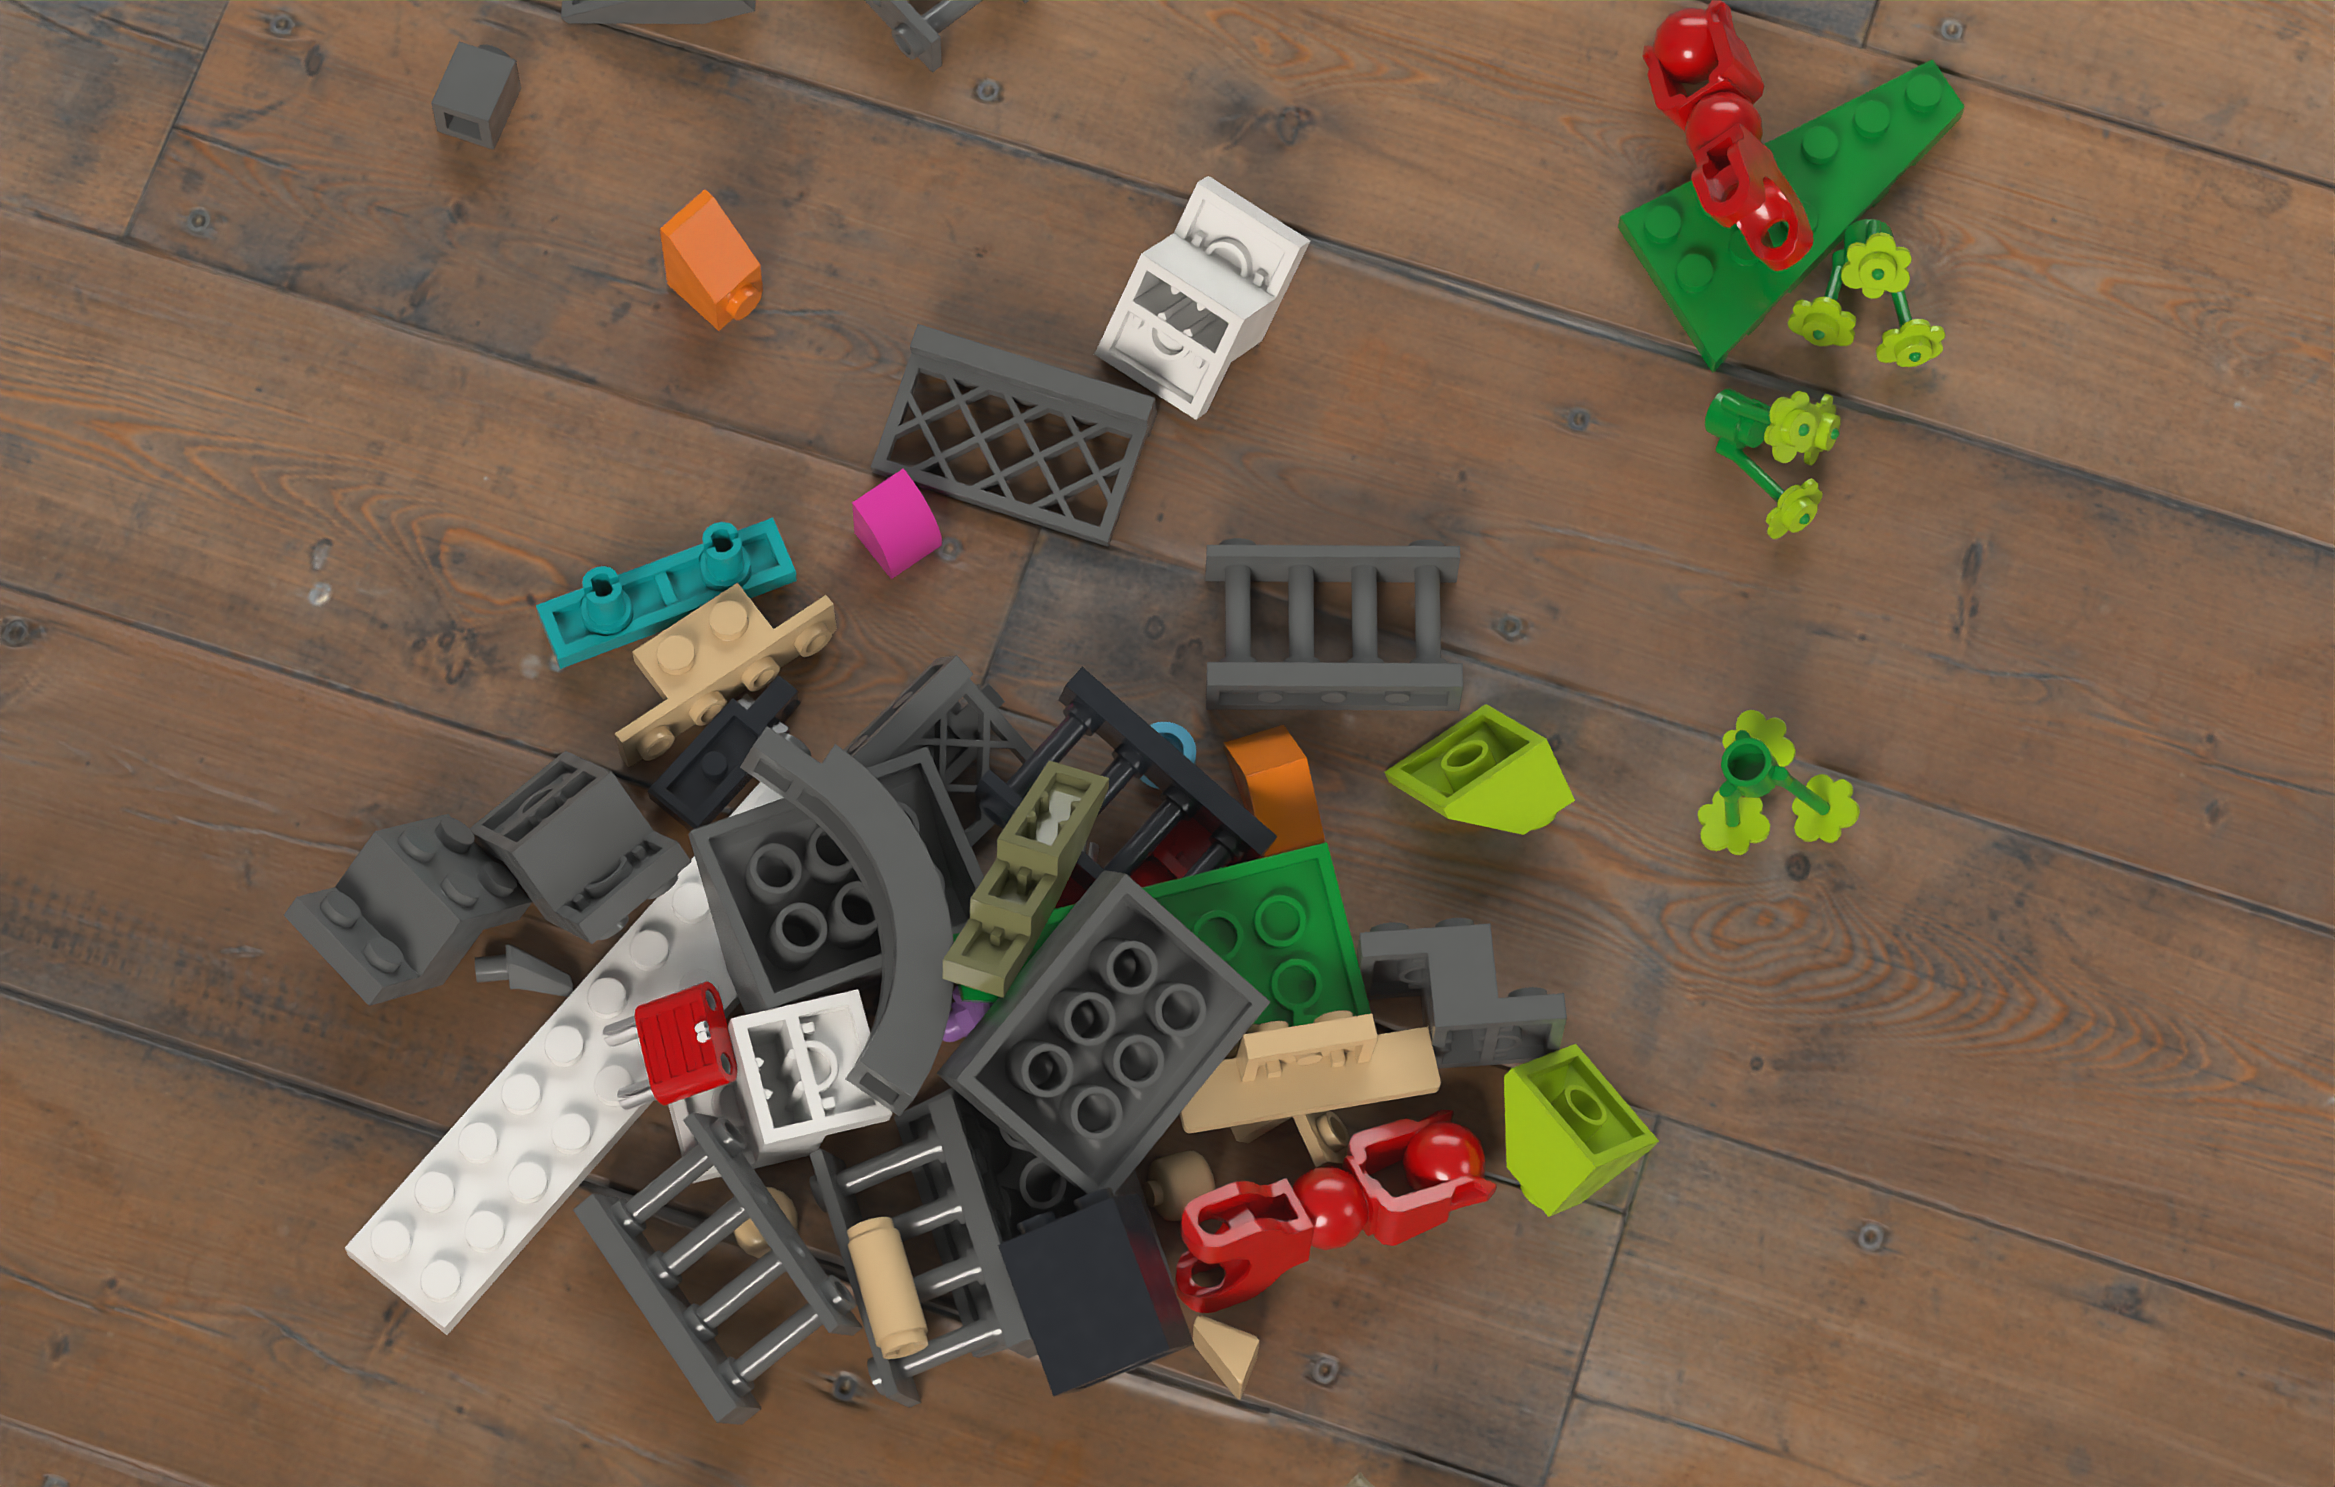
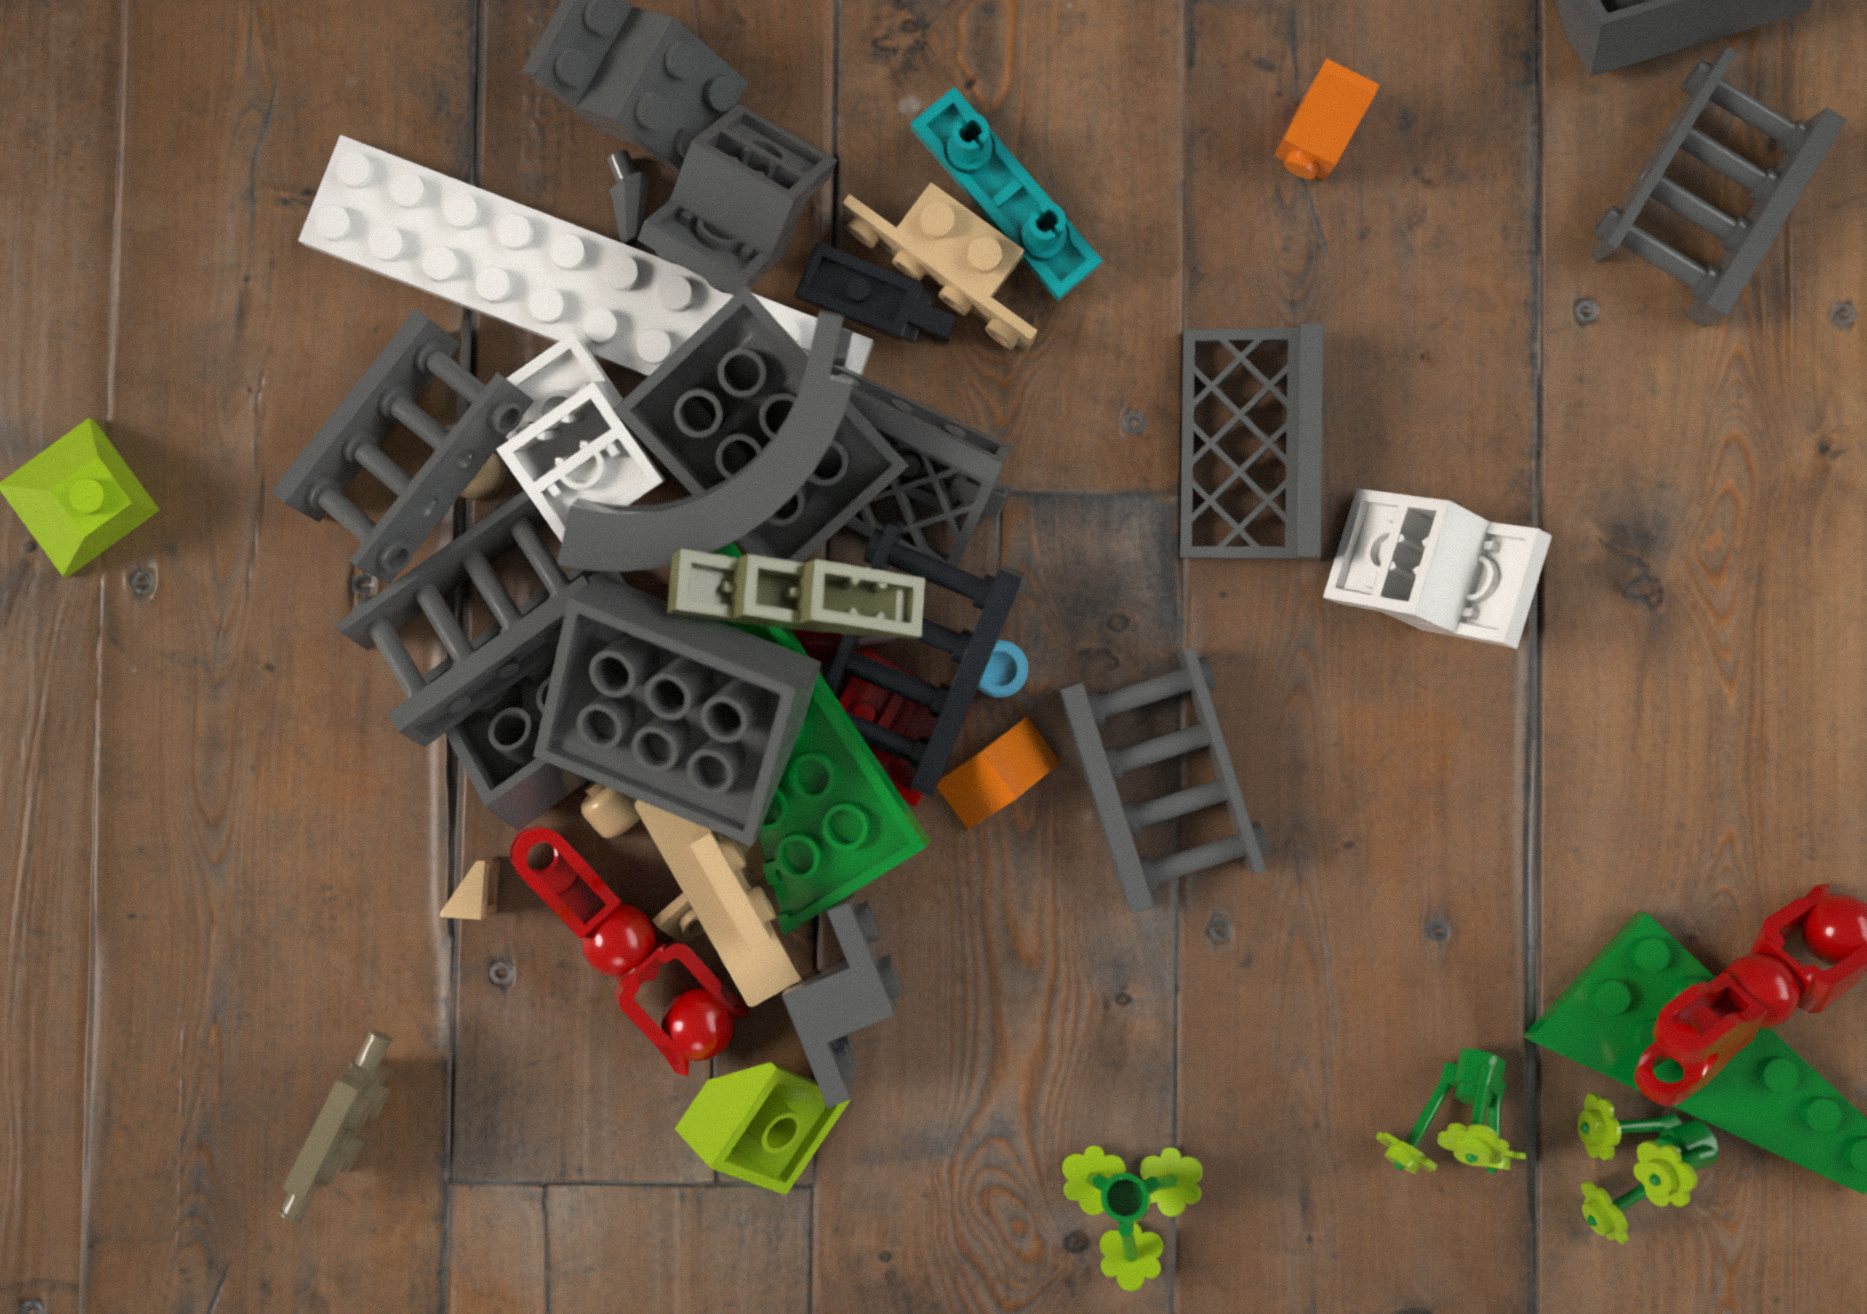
camera: 75 degrees right, 20 degrees up
(681, 1044) = (571, 346): red piece -> none
(887, 1288) = (420, 594): tan piece -> none
(896, 524) = (1132, 369): dark pink brick -> none
(1094, 1291) = (453, 775): black brick -> none
(1487, 774) = (1061, 951): lime slope -> none

